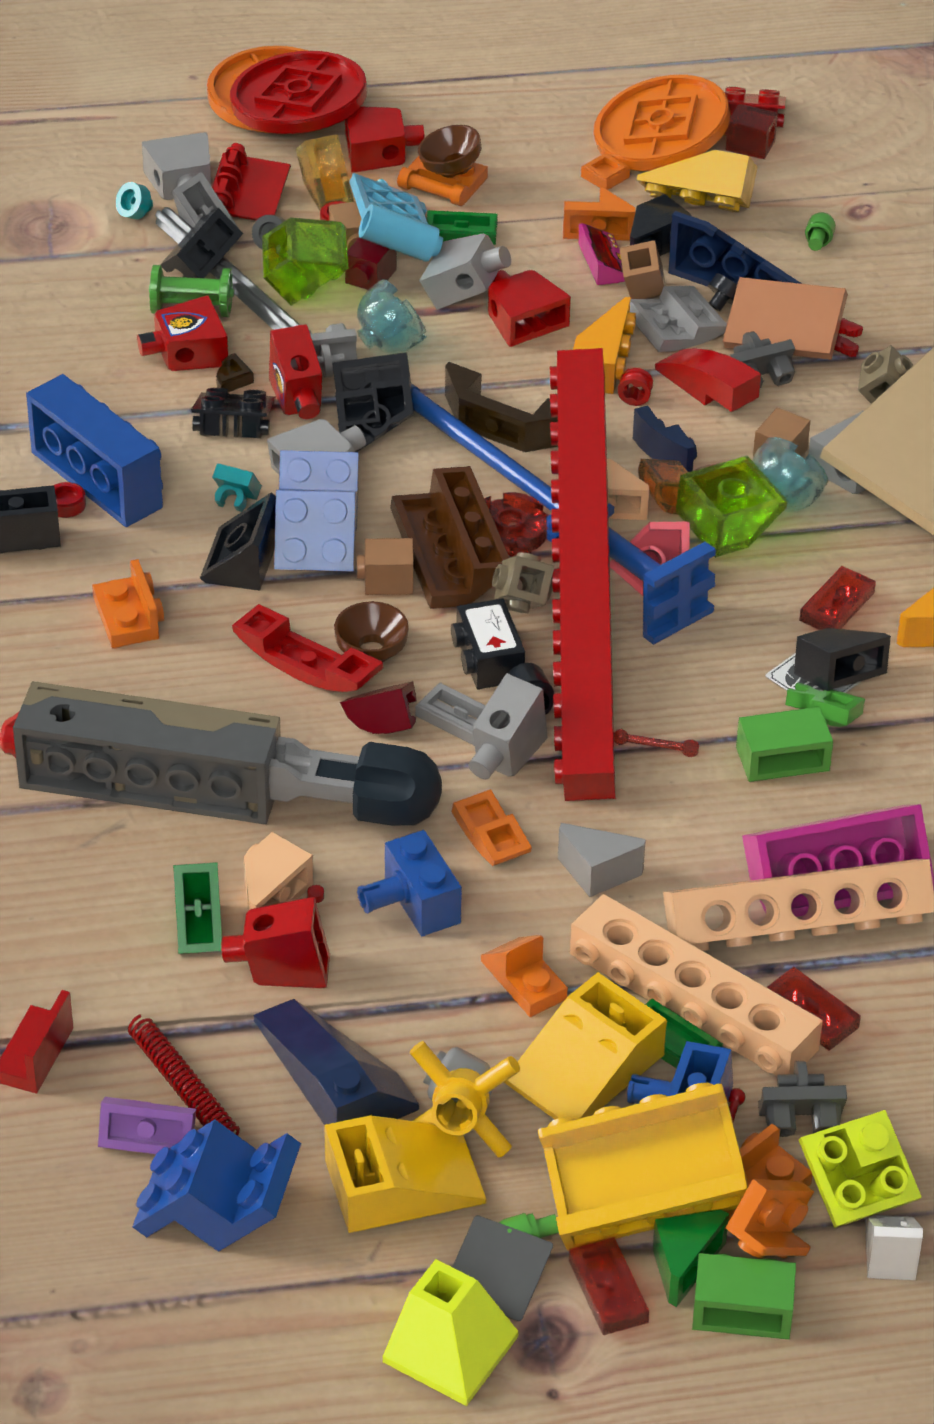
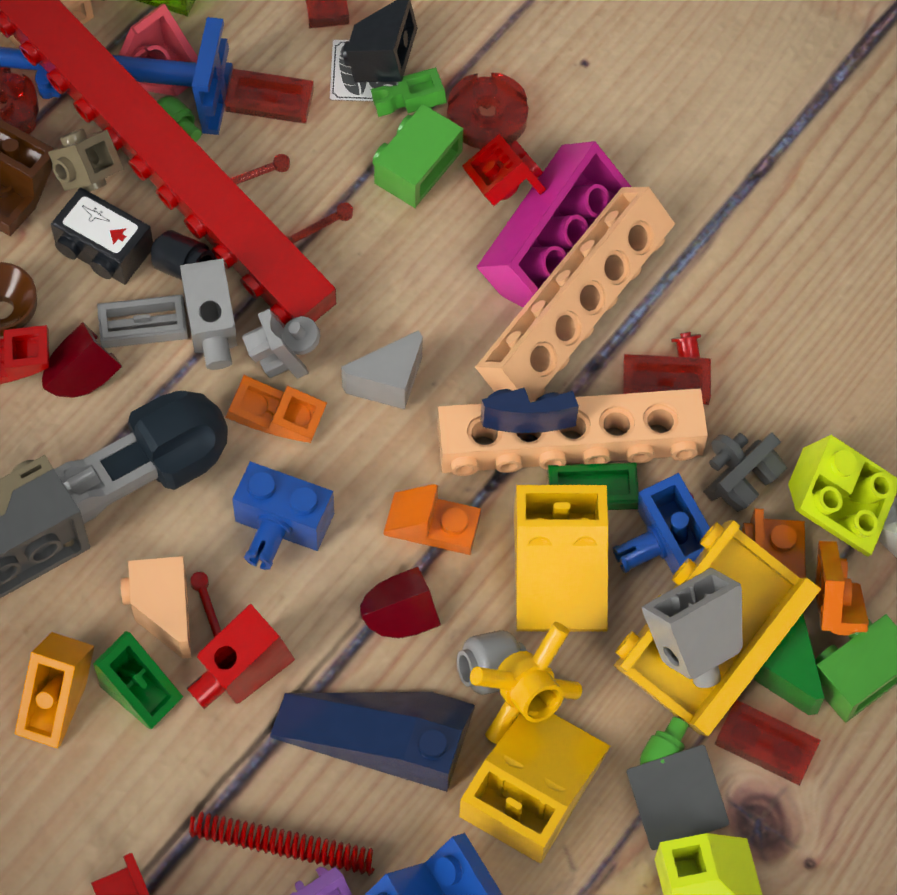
camera: 45 degrees left, 20 degrees up
(137, 875) = (53, 688): none -> light orange slope
(434, 1004) = (400, 606): none -> dark red brick
(538, 783) = (278, 344): none -> light grey hips
(619, 1141) = (698, 626): none -> light grey torso
(629, 611) = (181, 115): none -> bright green cylinder
(669, 942) = (514, 413): none -> dark blue slope
(678, 688) = (280, 163): none -> clear red hinge
(715, 639) = (269, 96): none -> clear red plate
(847, 785) = (501, 168): none -> red bracket
(859, 1001) = (687, 345): none -> red piece
(864, 769) = (495, 91): none -> clear red plate

